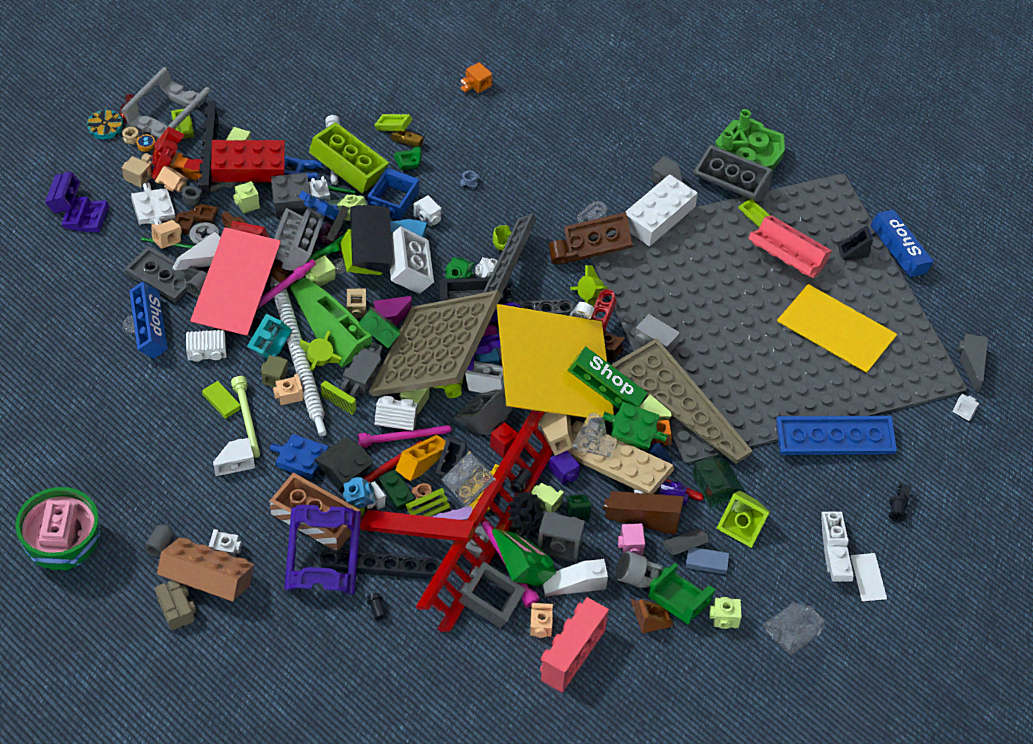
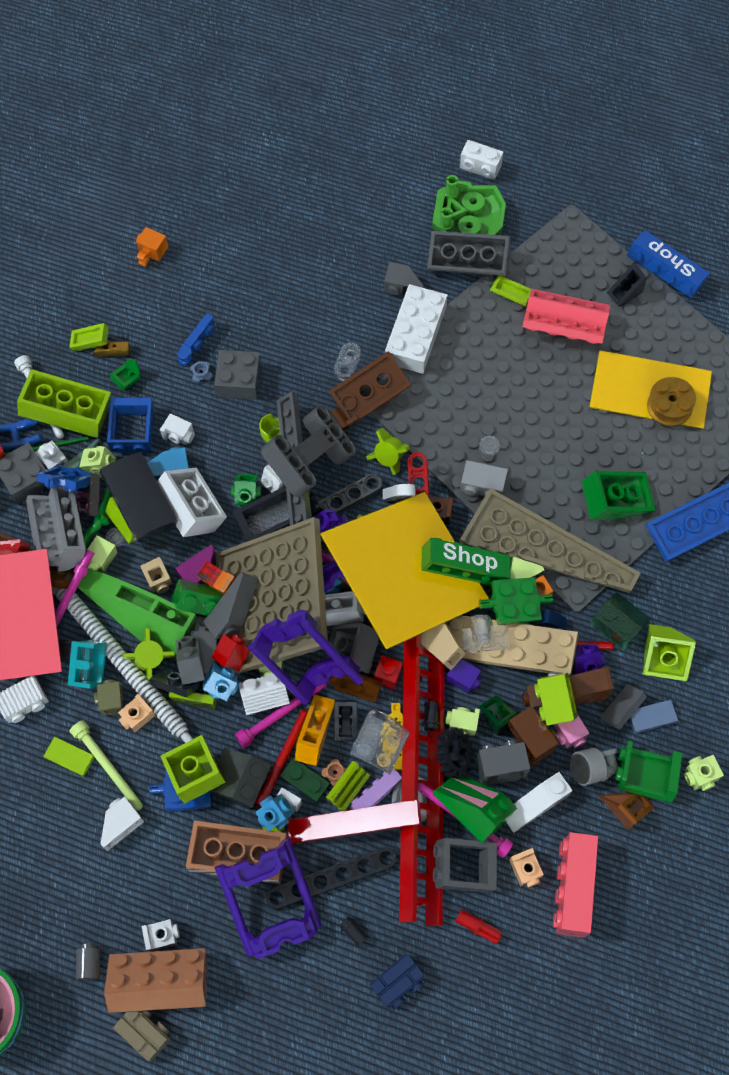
camera: 20 degrees left, 15 degrees up
(311, 436) = (192, 769): none -> lime brick
(330, 377) = (172, 683): none -> black plate
(349, 363) = (189, 659): none -> dark grey slope
(359, 389) = (220, 682): none -> dark azure brick
(386, 371) = (231, 651): none -> red brick
(392, 654) = (397, 981): none -> dark blue brick
(401, 316) = (215, 577): none -> leg
(403, 341) = (232, 608): none -> dark grey slope
(448, 414) = (320, 672): none -> dark purple piece
(468, 433) = (367, 690): none -> reddish brown hinge
(477, 154) = (195, 339): none -> blue hinge
(479, 645) = (478, 927): none -> red axle
(497, 190) = (237, 374): none -> dark grey brick
(505, 255) = (291, 463): none -> dark grey beam
(597, 528) = (531, 730): none -> reddish brown brick
(627, 498) = (556, 699): none -> lime brick
(675, 314) = (489, 445): none -> clear plate
(764, 388) = (617, 494): none -> green slope
(782, 113) = (481, 159): none -> white brick
(847, 339) = (671, 401): none -> pearl gold wheel

